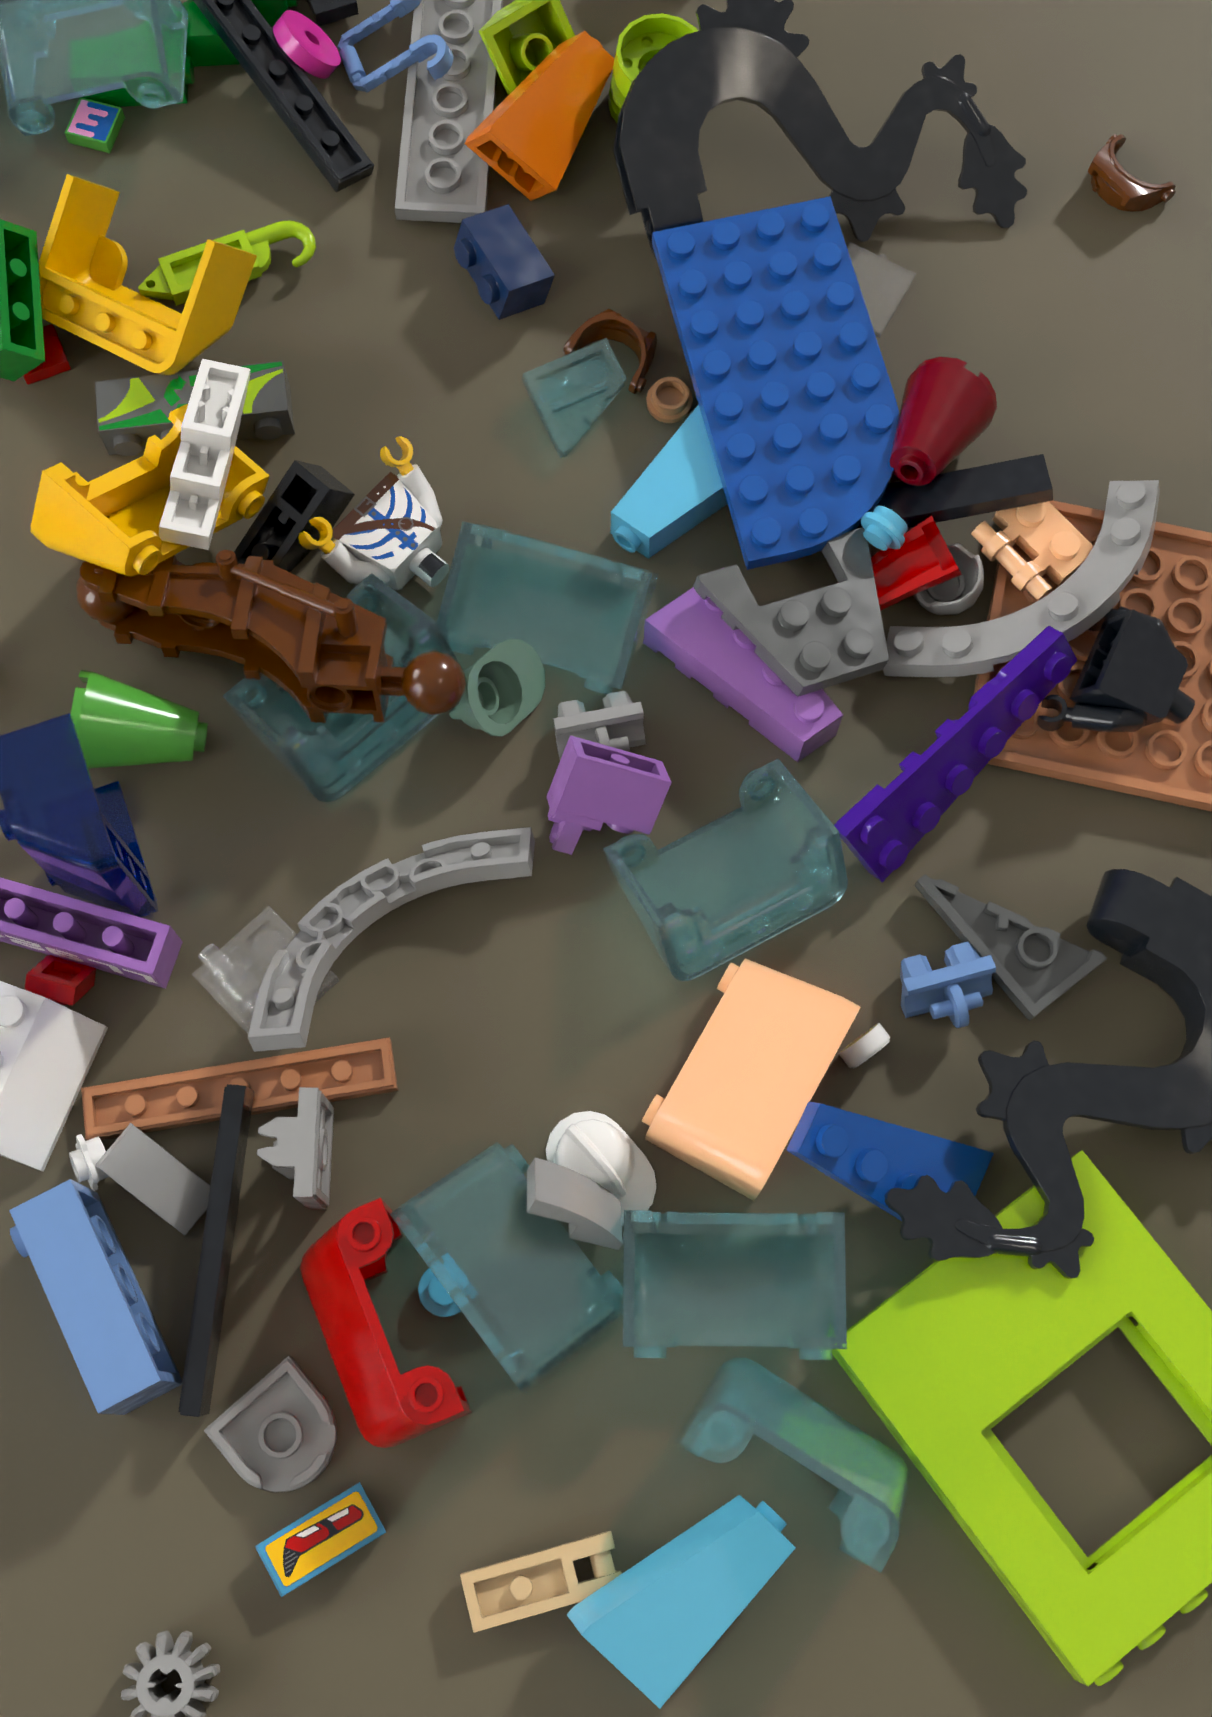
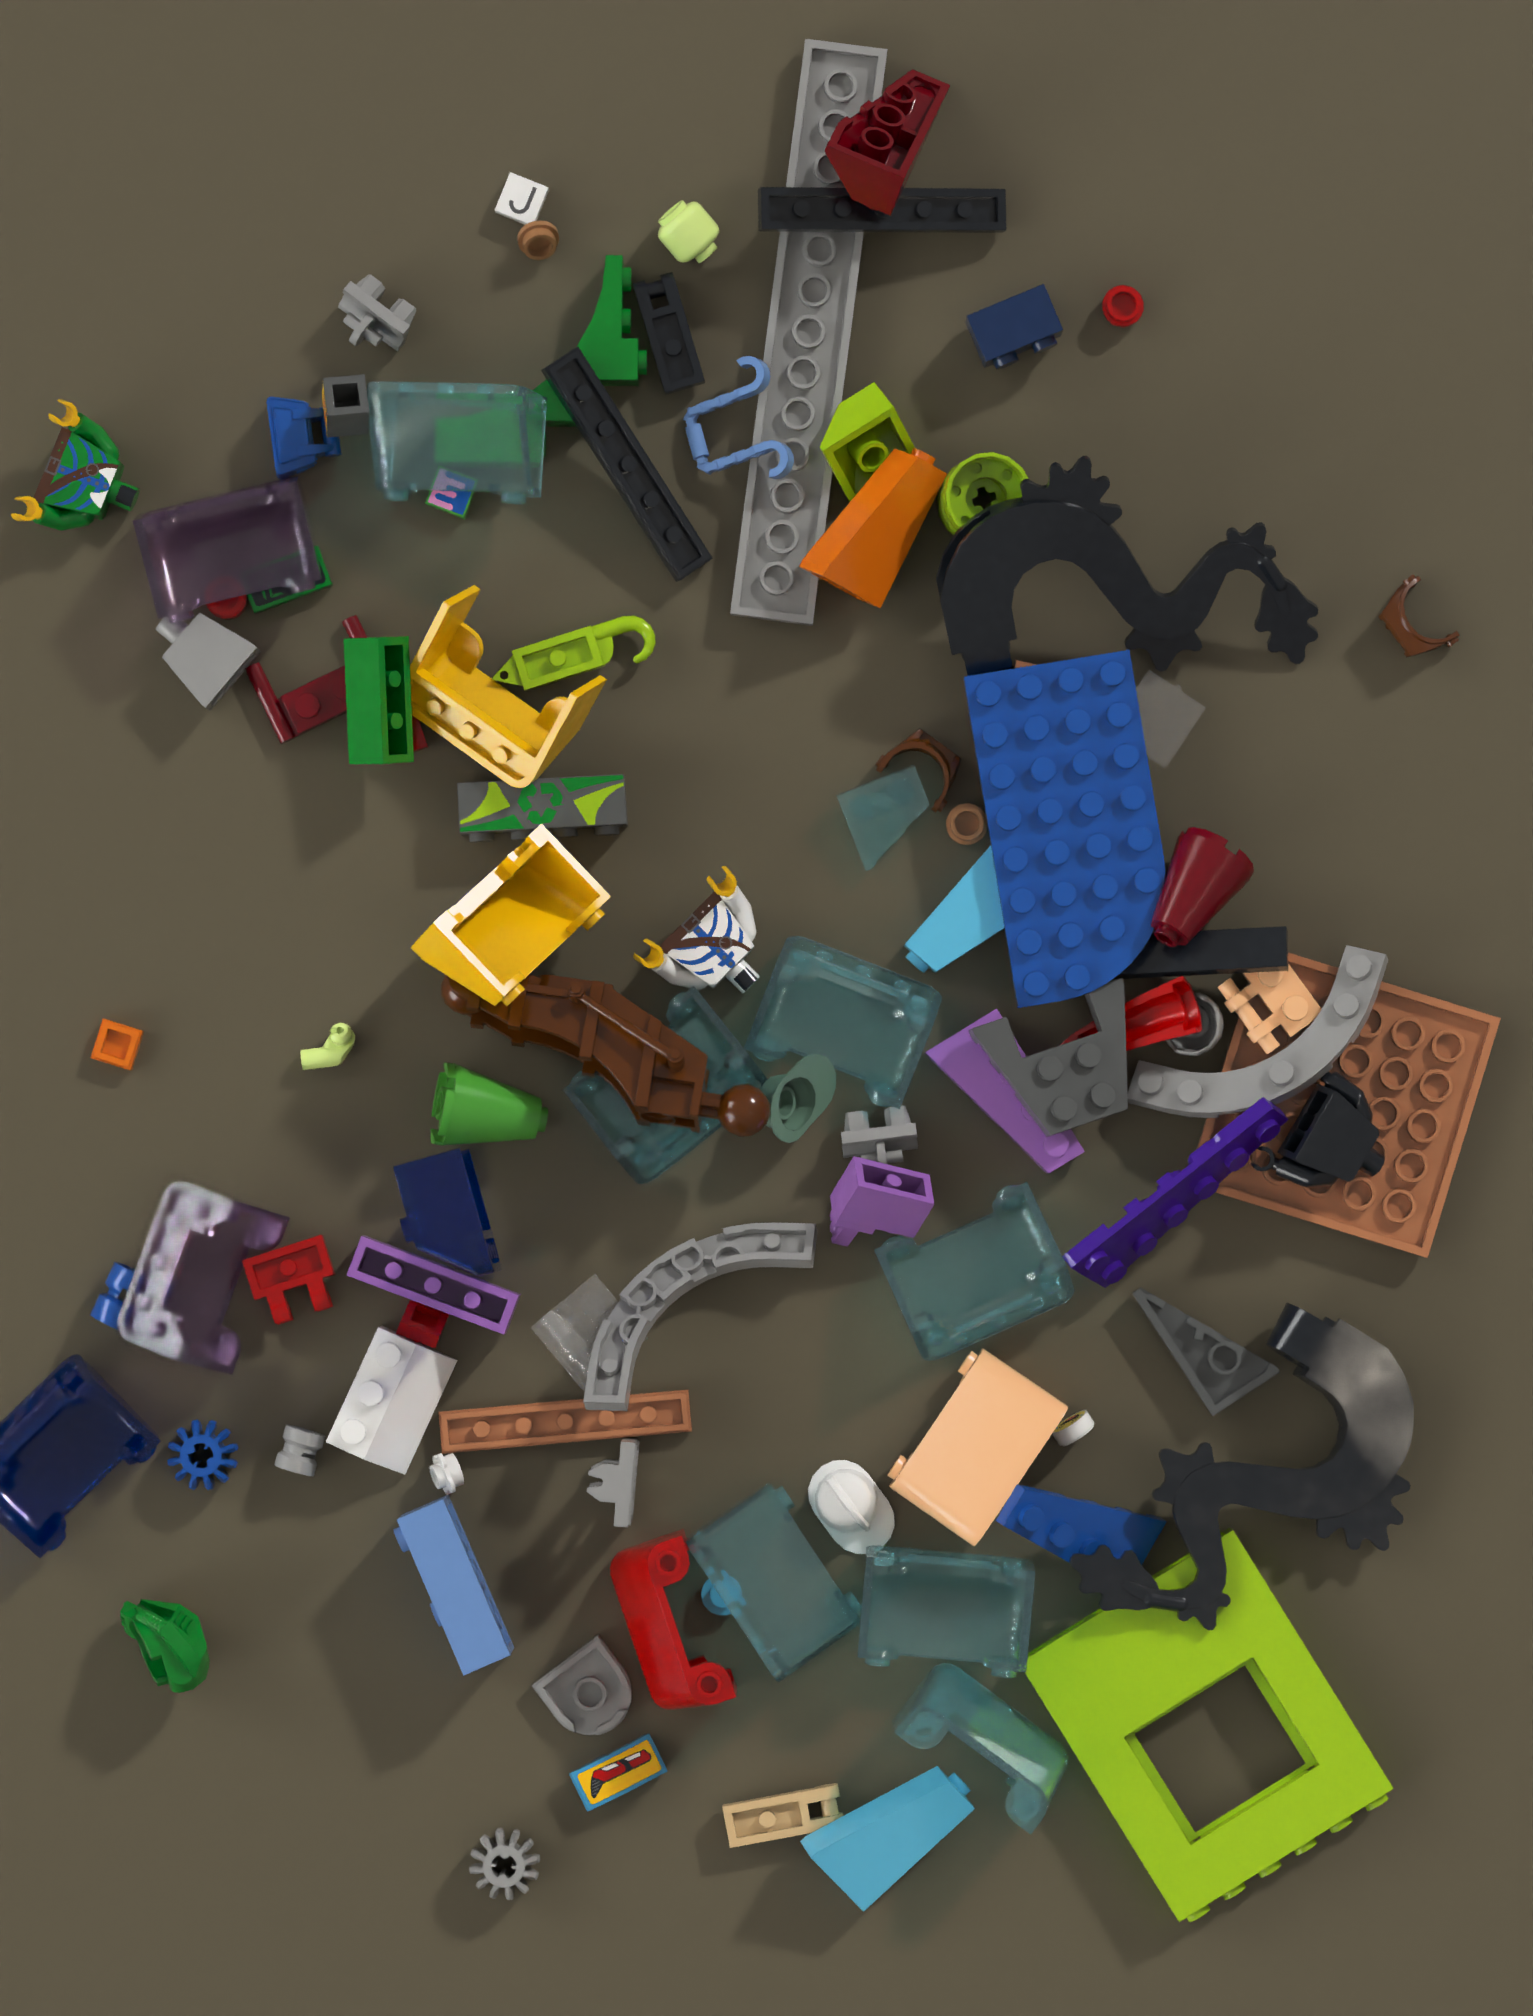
camera: 10 degrees right, 15 degrees up
(156, 1178) = (500, 1491): light grey slope -> none
(204, 454) = (559, 882): white slope -> none
(216, 1251) = (546, 1551): black tile -> none
(300, 496) = (620, 930): black slope -> none
(306, 44) = (656, 430): dark pink piece -> none
(503, 261) = (825, 680): dark blue brick -> none
(574, 1199) = (830, 1540): light grey slope -> none
(884, 528) = (1138, 987): medium azure plate -> none
(949, 989) = (1147, 1389): medium blue hips -> none

